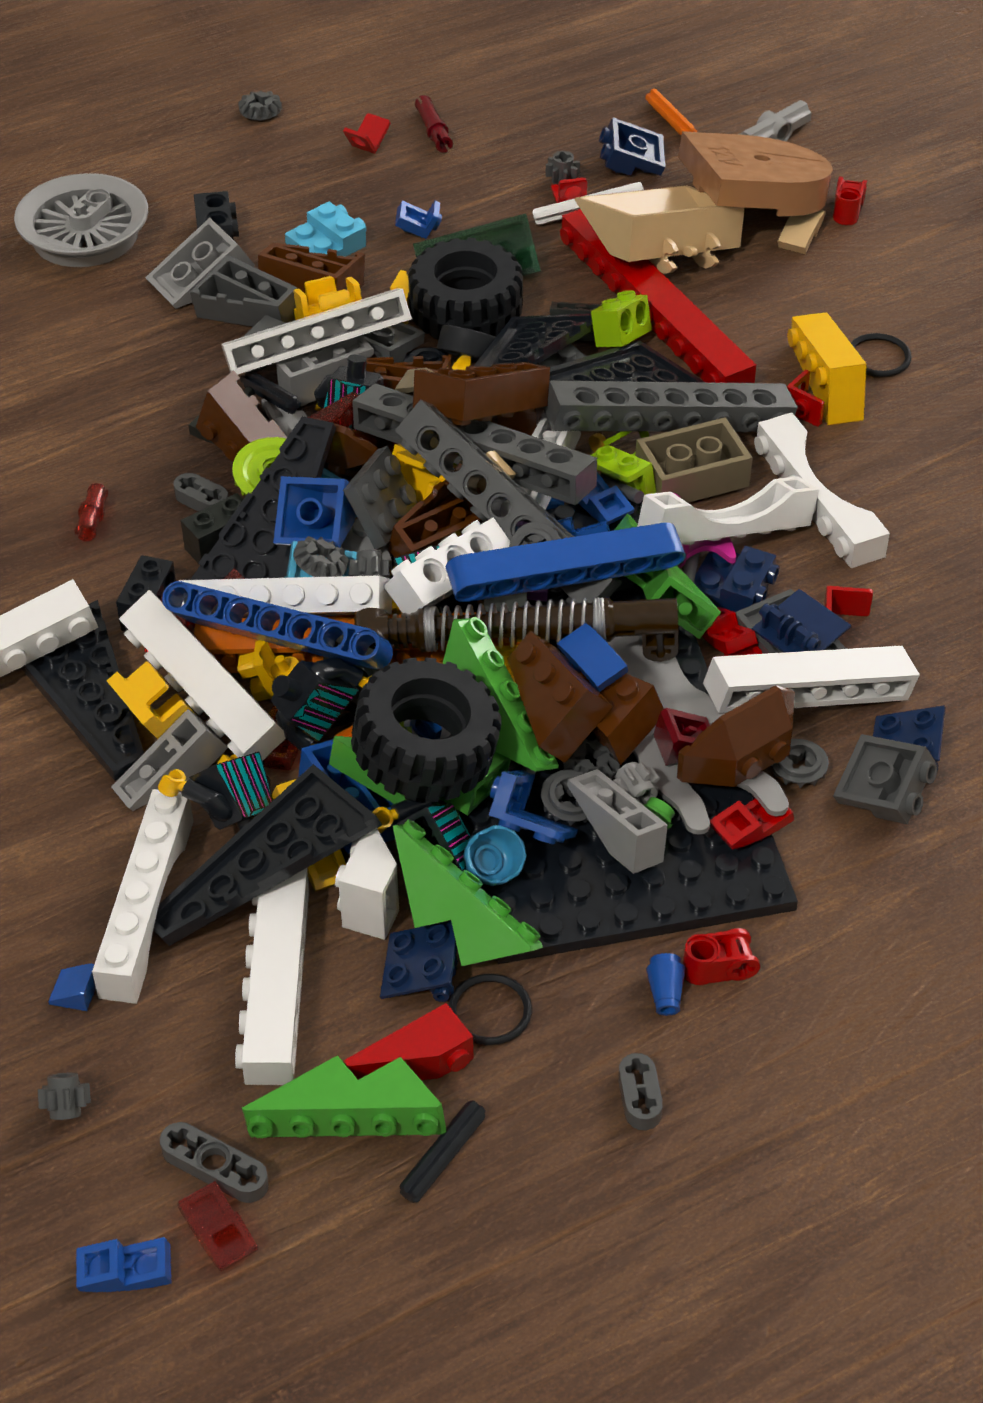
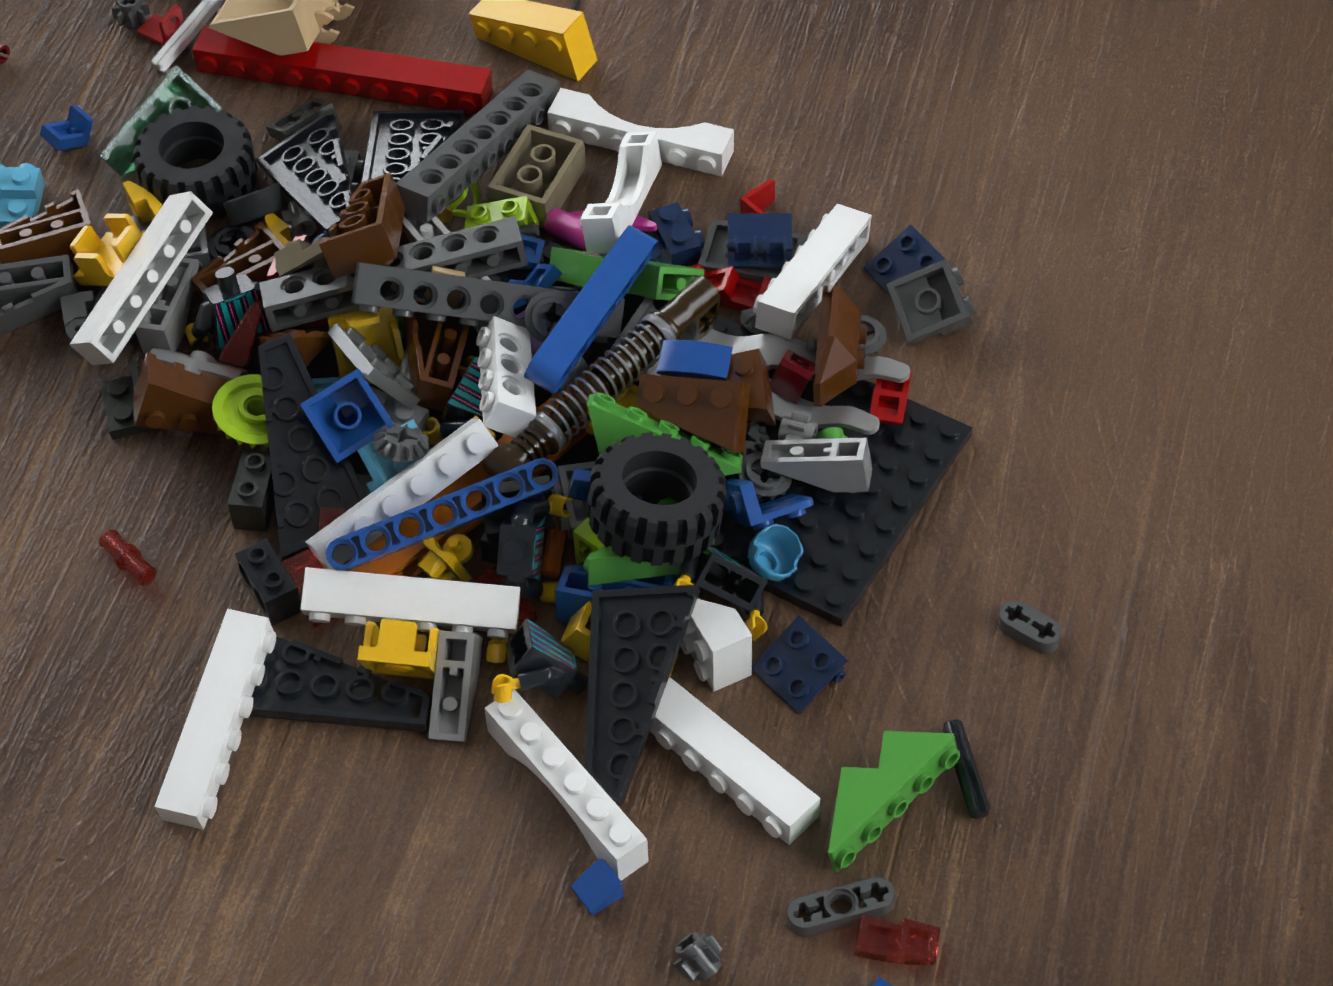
camera: 45 degrees left, 5 degrees up
(197, 491) = (194, 477): dark grey beam -> none
(271, 392) = (164, 352): black axle -> none
(369, 564) = (435, 424): dark grey gear -> none
(428, 1045) = (879, 710): red slope -> none
(444, 893) = (782, 605): bright green slope -> none
(504, 980) = (885, 631): black tyre -> none
(621, 319) = (349, 103): lime brick -> none
(666, 982) = (963, 546): blue cone -> none
(718, 957) = (973, 504): red piece -> none
(809, 407) = (559, 72): red bracket -> none

